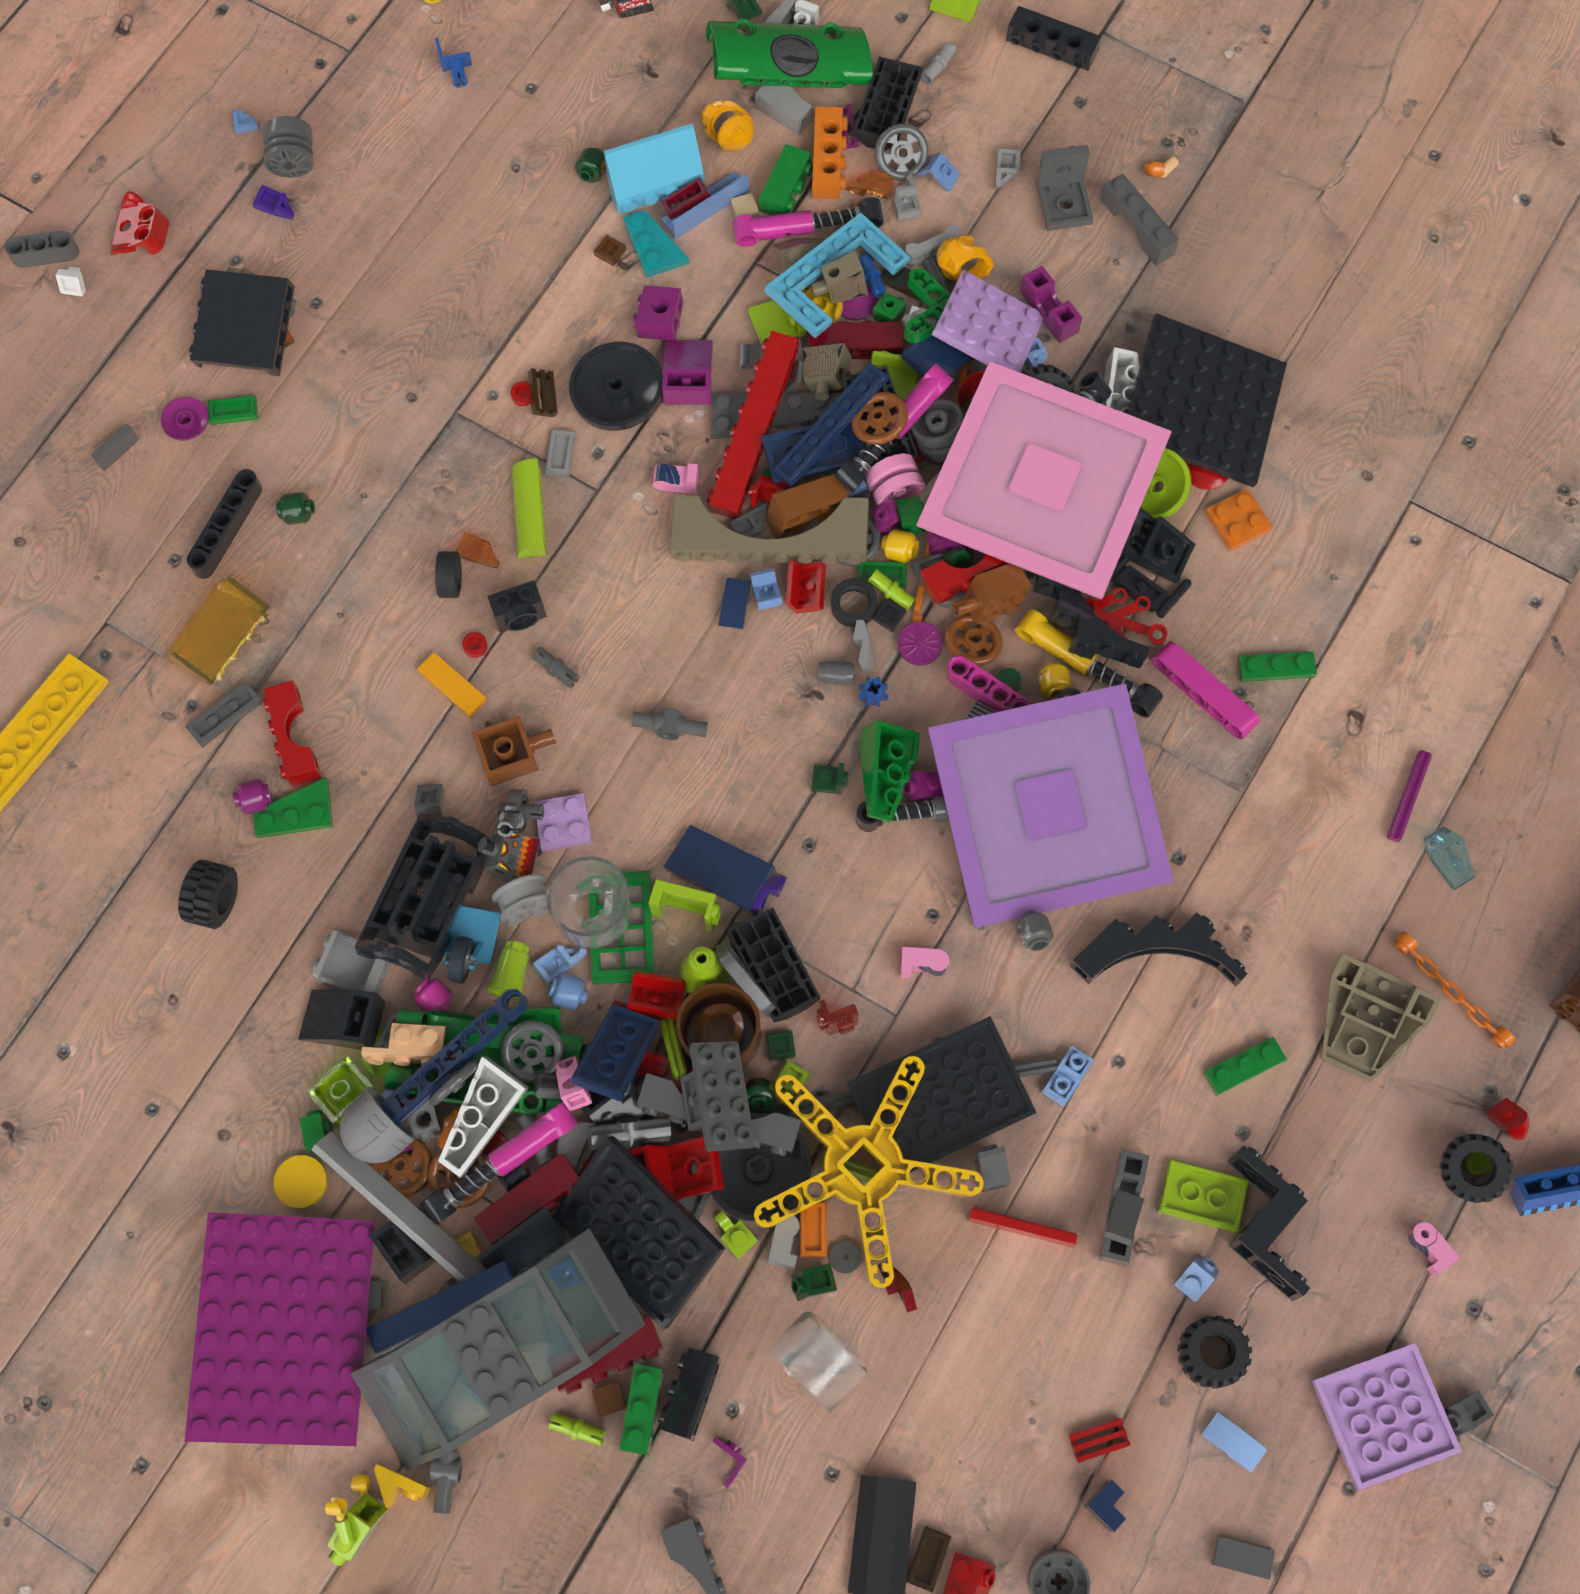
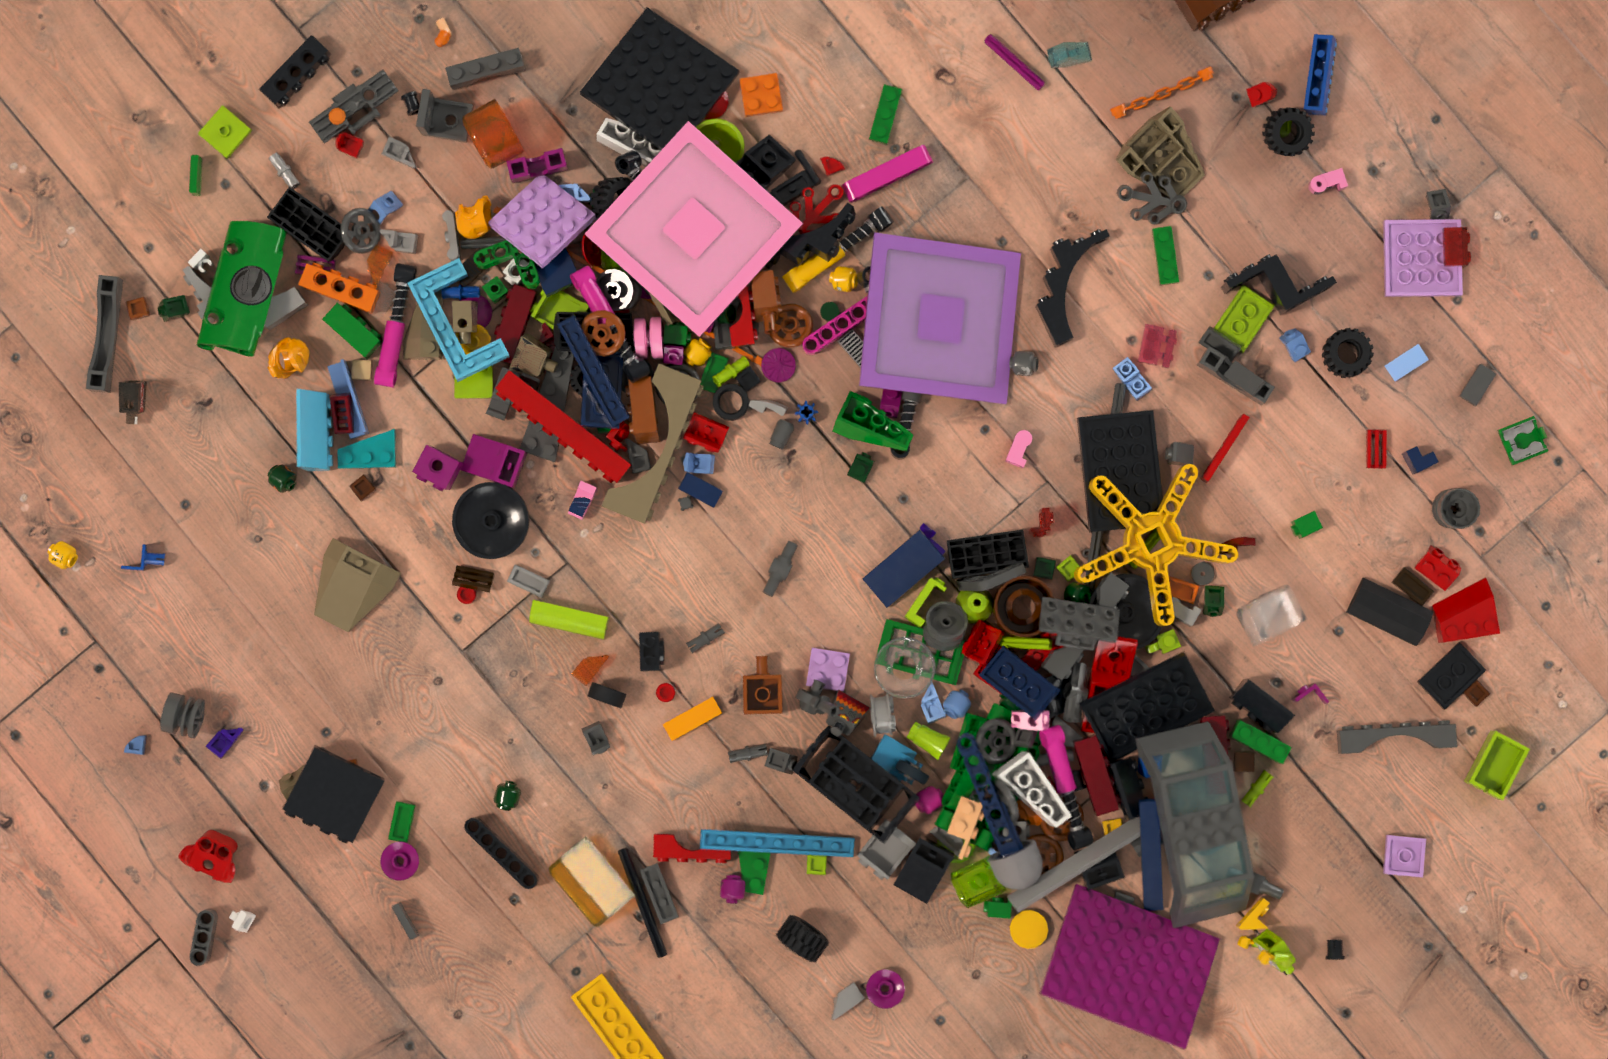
camera: 70 degrees left, 15 degrees up
(147, 979) = (846, 1000): none -> light grey slope
(164, 1014) = (892, 996): none -> magenta dish
(207, 700) = (642, 902): none -> black axle
(312, 888) = (816, 864): none -> lime tile
(323, 829) = (777, 843): none -> dark azure tile
(394, 583) = (596, 738): none -> dark grey bracket
(428, 761) = (748, 753): none -> dark grey pin
(492, 272) = (351, 585): none -> dark tan wedge
(661, 939) = (945, 626): none -> dark grey wheel
(713, 593) = (685, 503): none -> dark grey piece
(959, 1374) = (1306, 525): none -> green brick
(994, 113) = (349, 144): none -> red plate
(1041, 96) = (348, 102): none -> dark grey piece
(1067, 241) = (492, 134): none -> clear orange piece
(1121, 1085) = (1151, 344): none -> clear pink plate
(1158, 1175) = (1220, 343): none -> dark grey tile
(1187, 625) = (831, 165): none -> red tile
(1312, 1023) = (1154, 199): none -> dark grey plant
(1421, 1456) = (1456, 247): none -> clear red bracket

